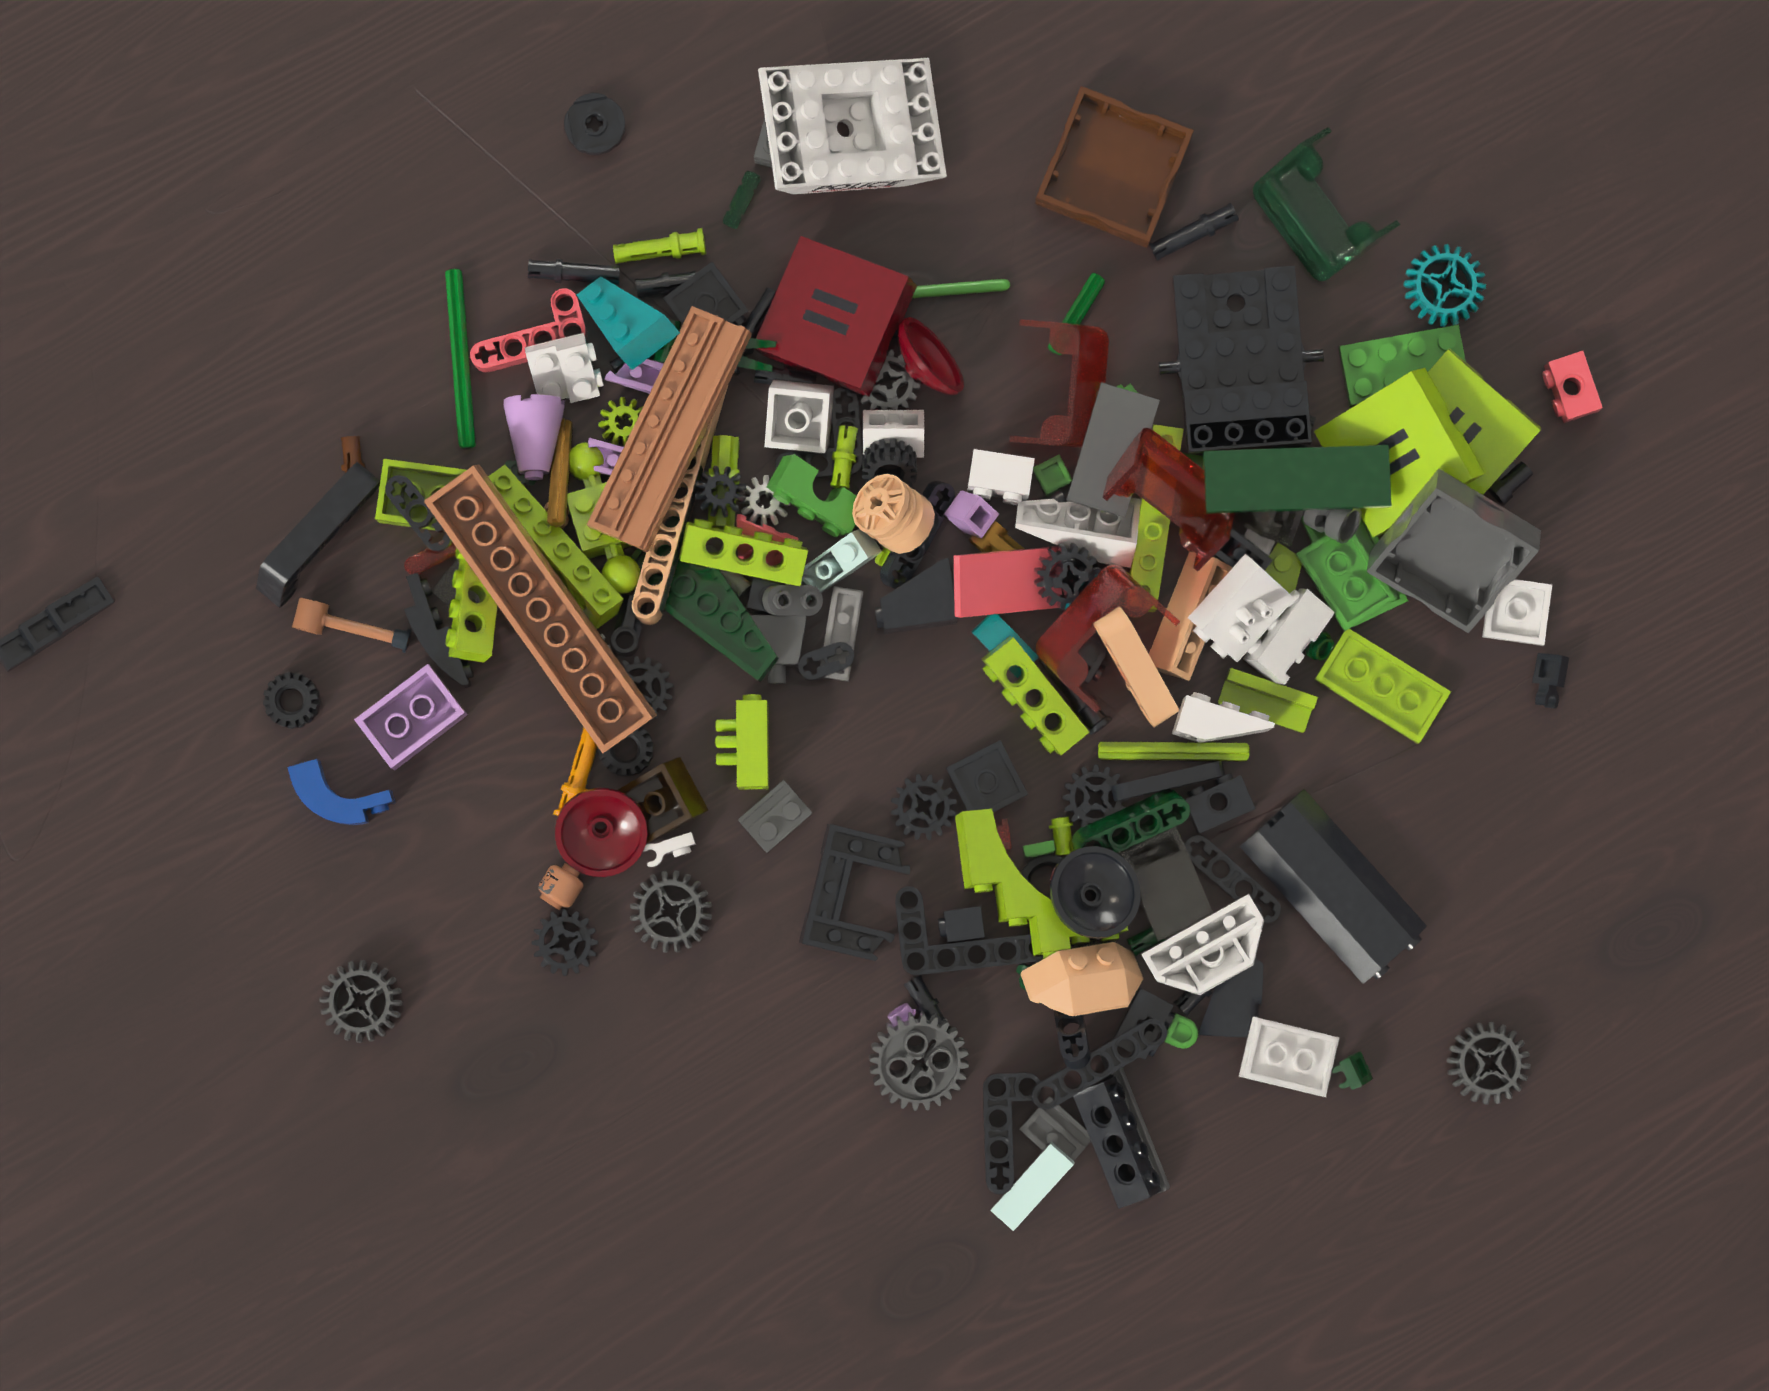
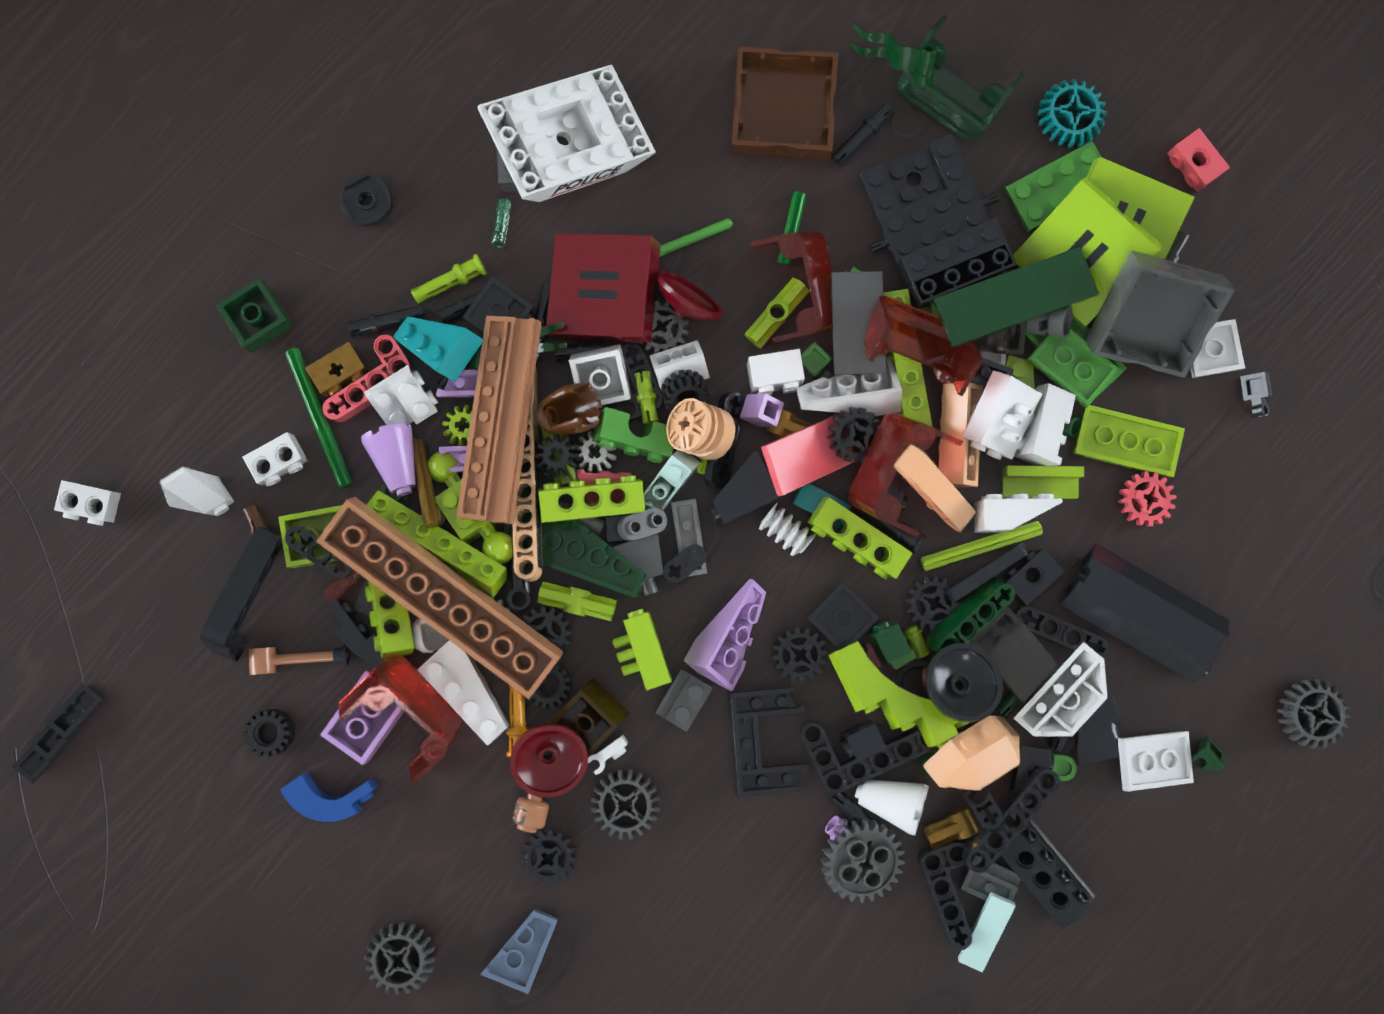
camera: 15 degrees left, 0 degrees up
(170, 365) = (87, 502): none -> white brick
(299, 403) = (196, 492): none -> white wedge
(396, 383) = (273, 453): none -> white brick
(426, 218) = (255, 315): none -> dark green brick
(463, 687) = (403, 684): none -> clear red windscreen
(485, 305) = (325, 369): none -> pearl gold brick
(499, 1043) = (522, 954): none -> sand blue wing
(508, 648) = (426, 638): none -> white hair
(529, 716) = (466, 691): none -> white wedge
(689, 664) = (576, 601): none -> lime piece
(752, 444) = (570, 410): none -> reddish brown hair
(840, 766) = (722, 644): none -> lavender wedge
(954, 661) = (786, 530): none -> white piece
(977, 1007) = (894, 801): none -> white cone
(1029, 822) = (889, 641): none -> dark green brick
(1038, 1057) = (957, 825): none -> pearl gold piece
(1041, 396) = (787, 301): none -> lime piece
(1263, 160) = (899, 57): none -> dark green flag
(1369, 750) = (1150, 489): none -> coral gear

